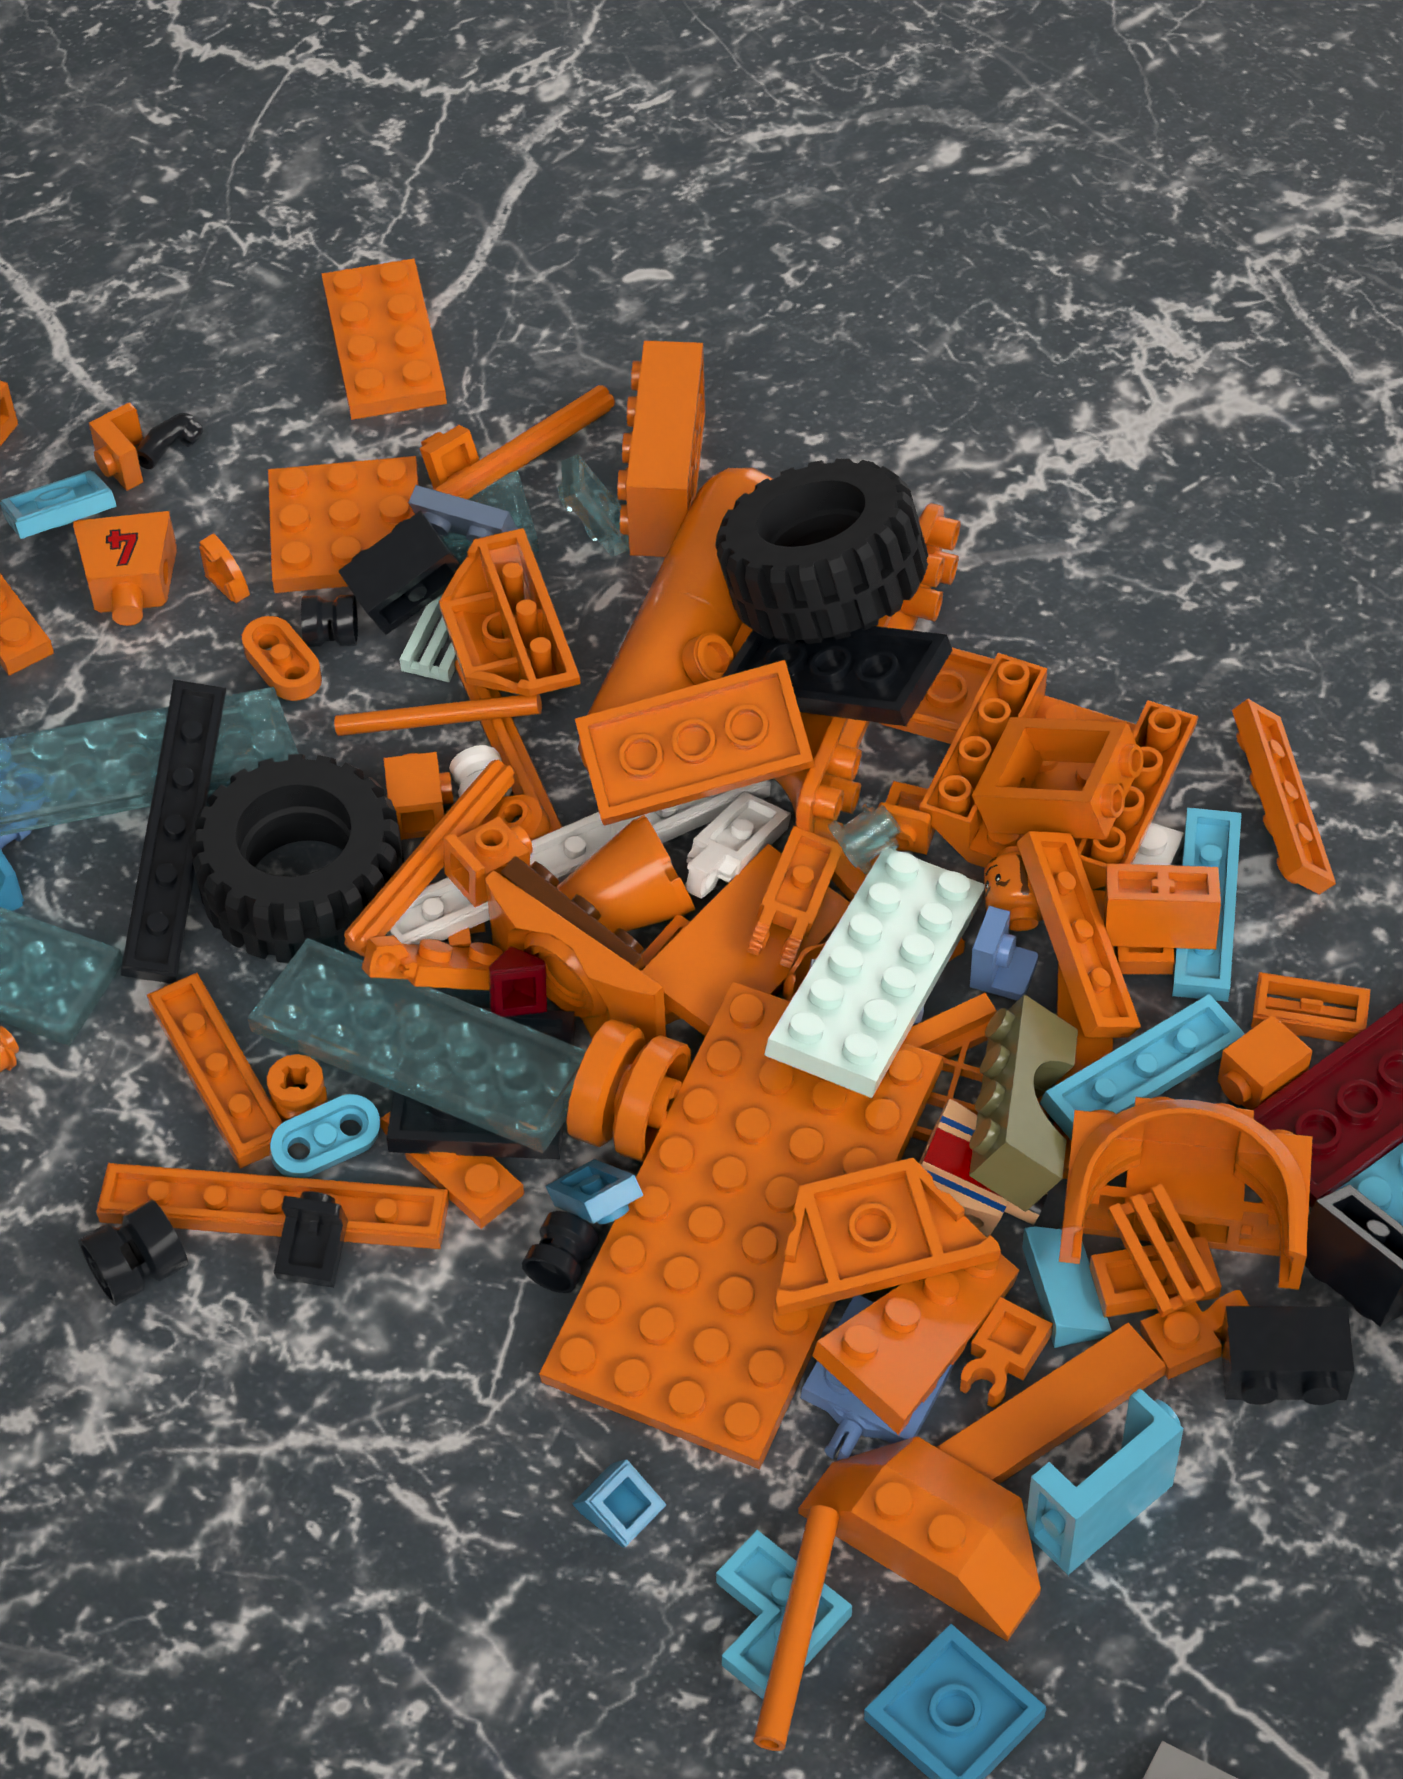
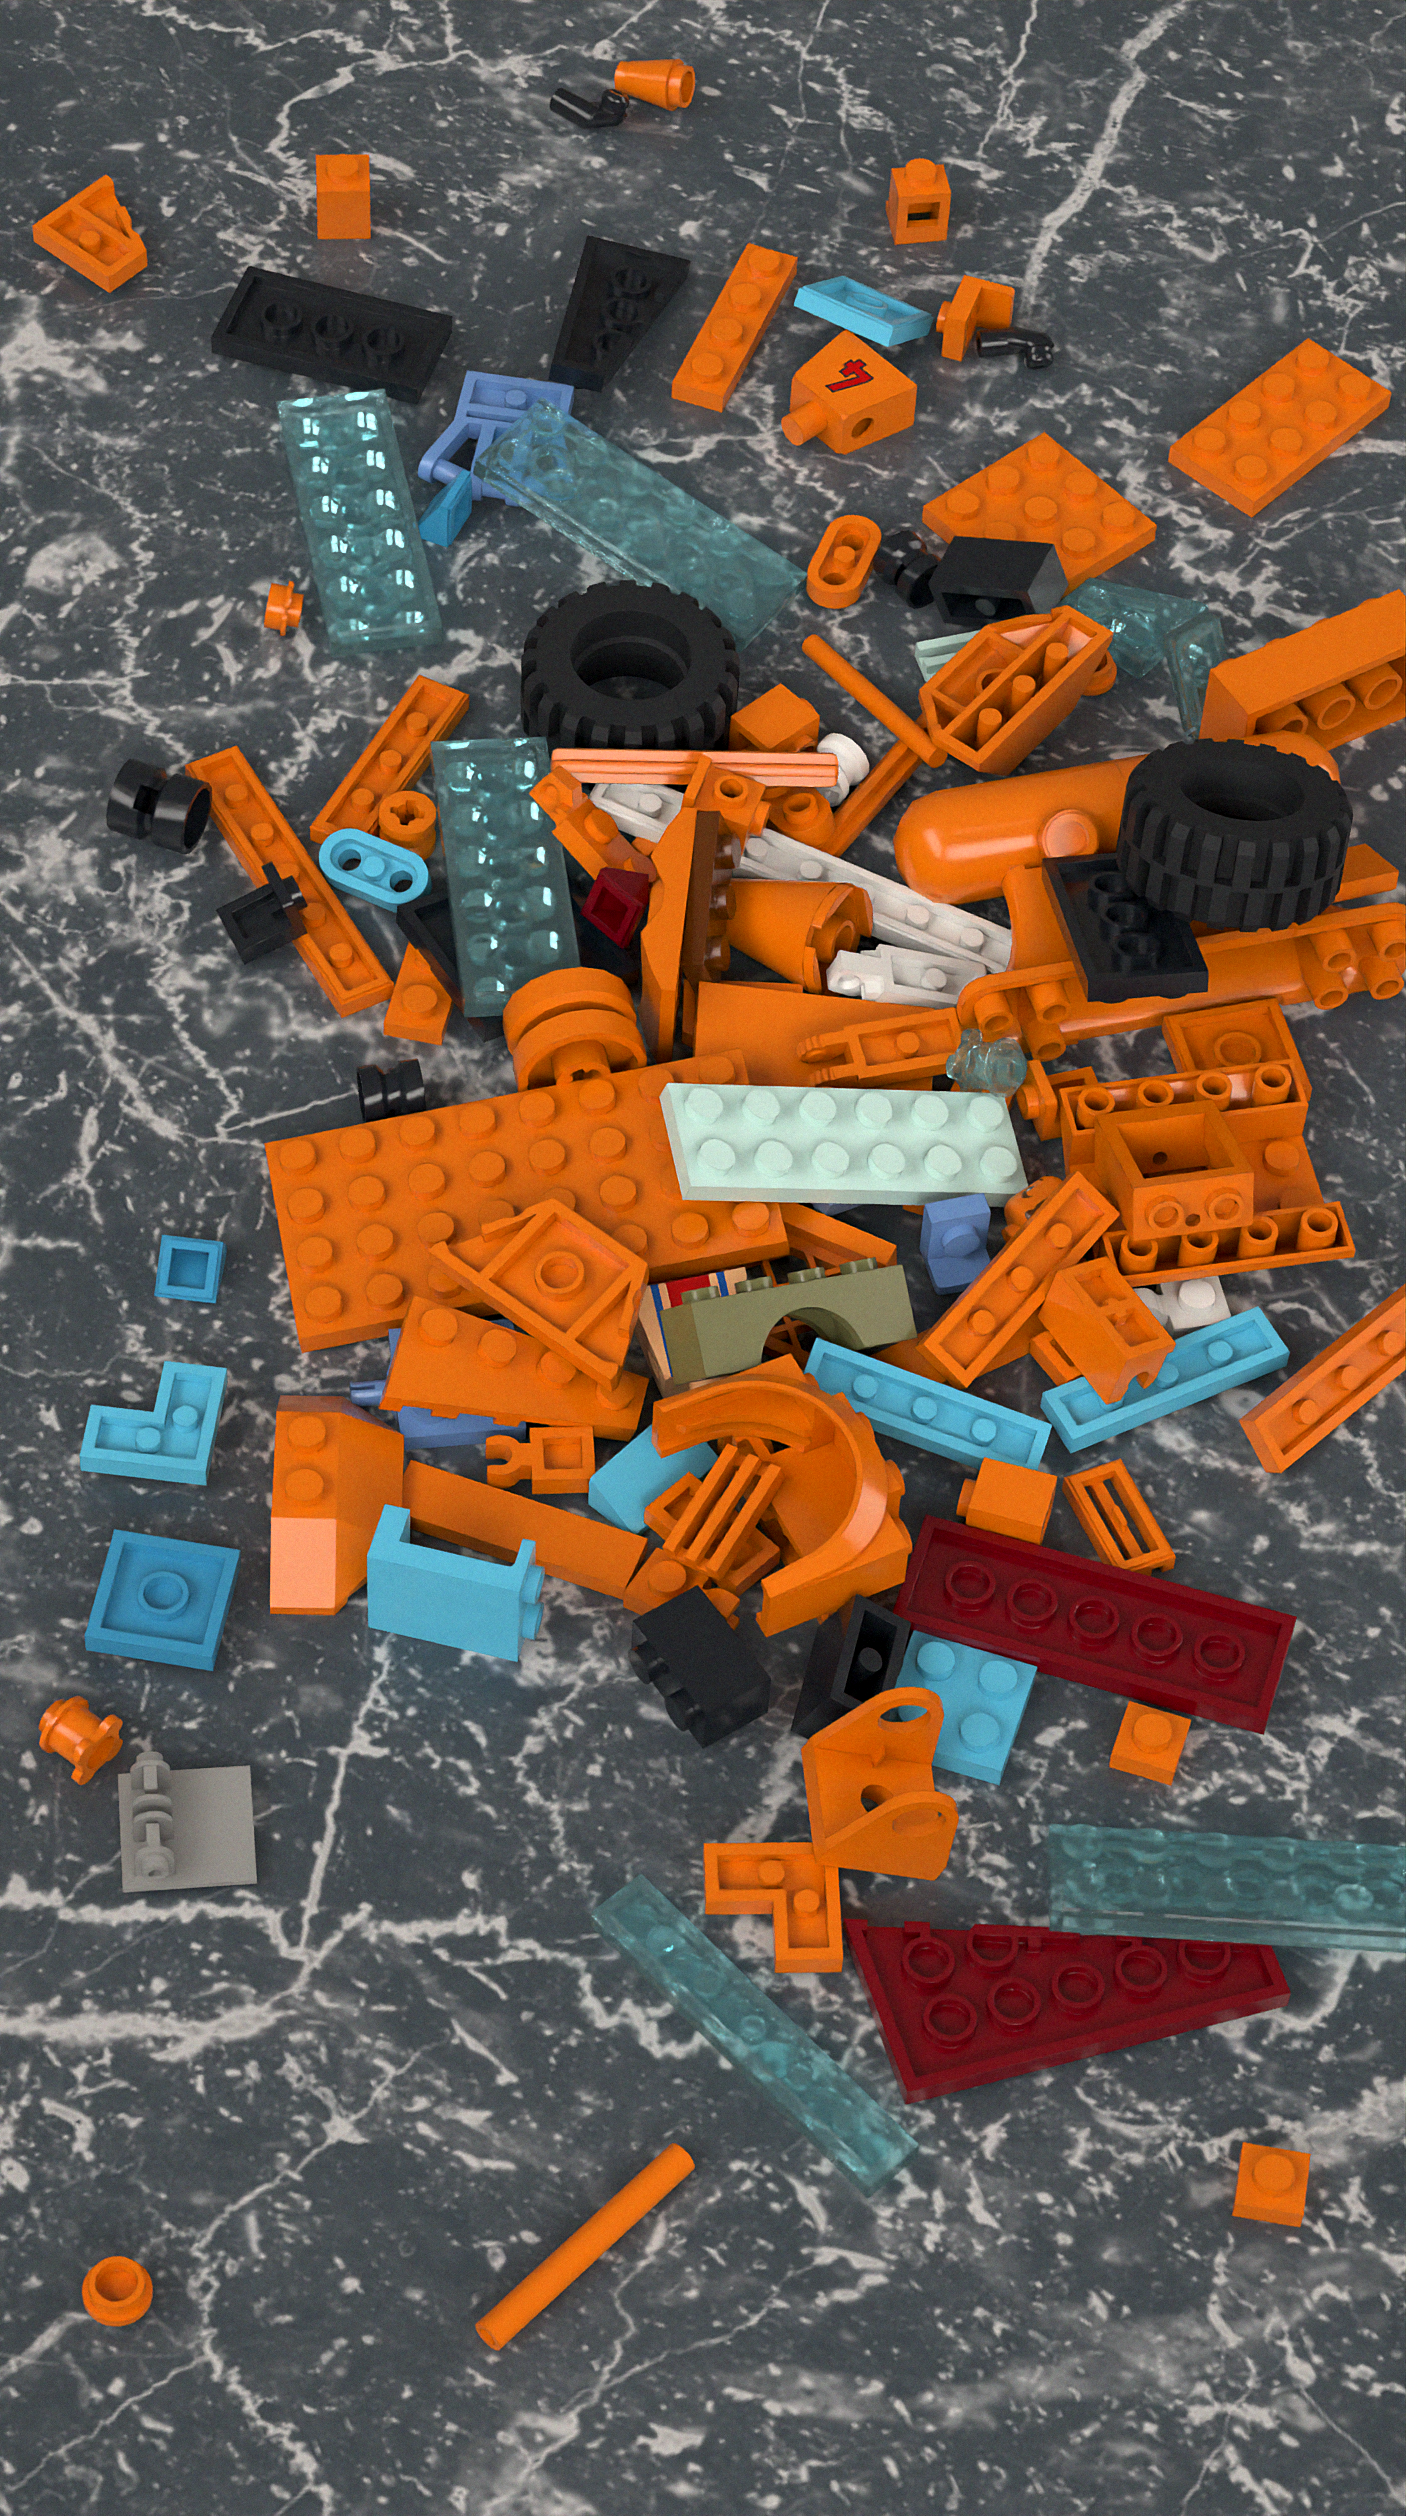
camera: 50 degrees right, 0 degrees up
(166, 859) = (646, 555): black tile -> none
(222, 569) = (904, 466): orange tile -> none
(448, 454) = (1171, 550): orange tile -> none
(459, 514) = (1085, 573): sand blue plate -> none
(530, 443) = (1216, 590): orange axle -> none
(595, 1192) = (458, 1077): dark azure plate -> none
(694, 742) = (953, 870): orange plate -> none
(796, 1628) = (150, 1437): orange piece -> none

